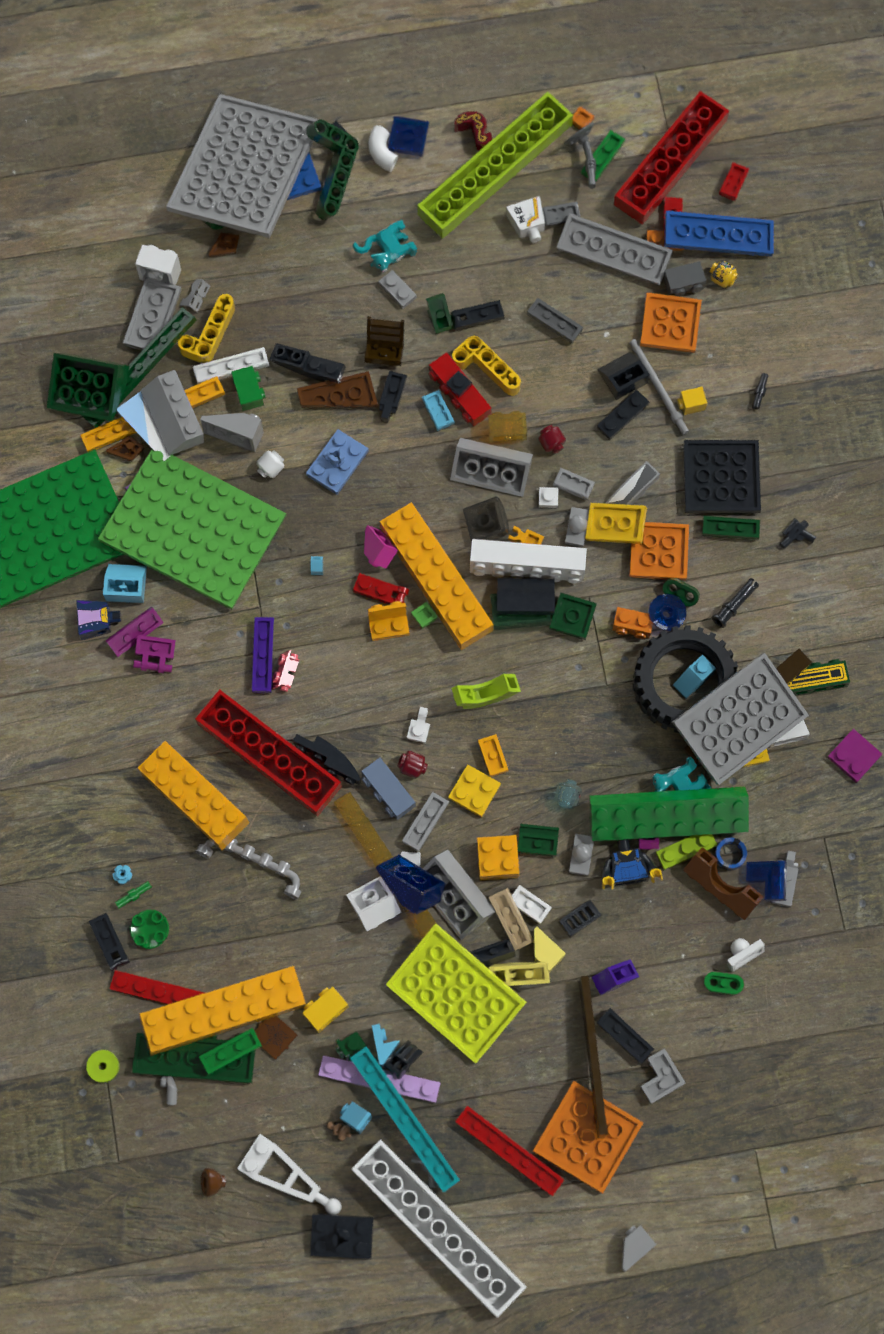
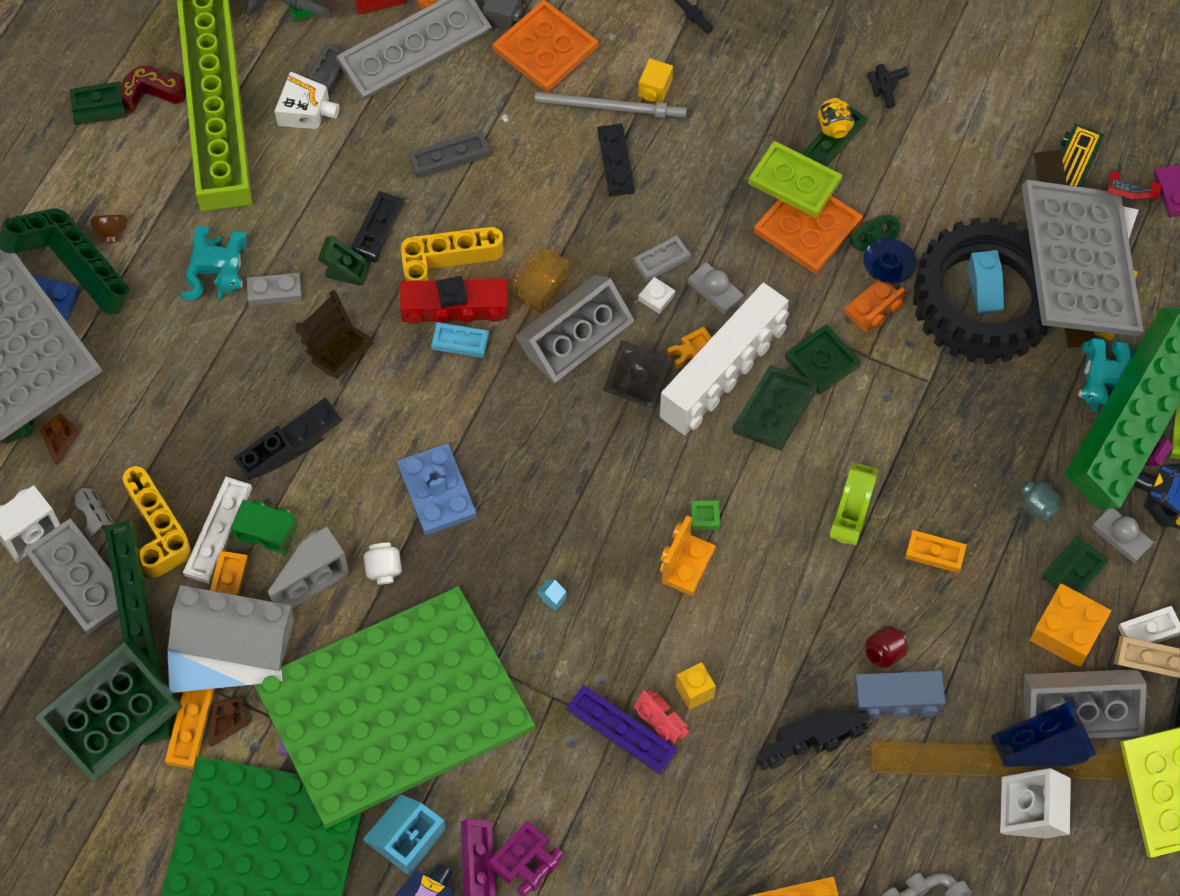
camera: 55 degrees left, 10 degrees down
(268, 753) = (758, 802): red brick -> none
(314, 676) = (695, 686): none -> yellow brick
(350, 393) = (363, 416): reddish brown wing -> none
(369, 175) = (109, 227): none -> reddish brown brick
(378, 547) = (585, 509): dark pink slope -> none
(379, 150) = (88, 197): white cylinder -> none
(379, 589) = (636, 545): red plate -> none
(392, 394) = (401, 376): black hinge -> none
(408, 136) = (97, 158): clear blue plate -> none
(412, 856) = (1002, 722): white sticker -> none
(419, 729) = (842, 613): white plate -> none
(425, 821) = (969, 679): light grey plate -> none
(436, 576) = (667, 469): light orange brick -> none
(443, 108) = (97, 103): none -> dark green plate
(474, 790) = (964, 601): yellow plate -> none
(526, 596) = (766, 389): black tile -> none
(552, 439) = (591, 244): dark red head -> none
(616, 523) = (745, 242): yellow plate -> none
(624, 375) = (571, 125): black slope -> none
(635, 485) = (714, 203): slope -> none
(679, 523) = (795, 179): none -> lime plate
(722, 476) = (763, 105): black plate -> none
(730, 608) = (929, 198): black pin -> none
(740, 519) = (835, 118): none -> yellow head
(815, 717) = (1131, 191): none -> red flag

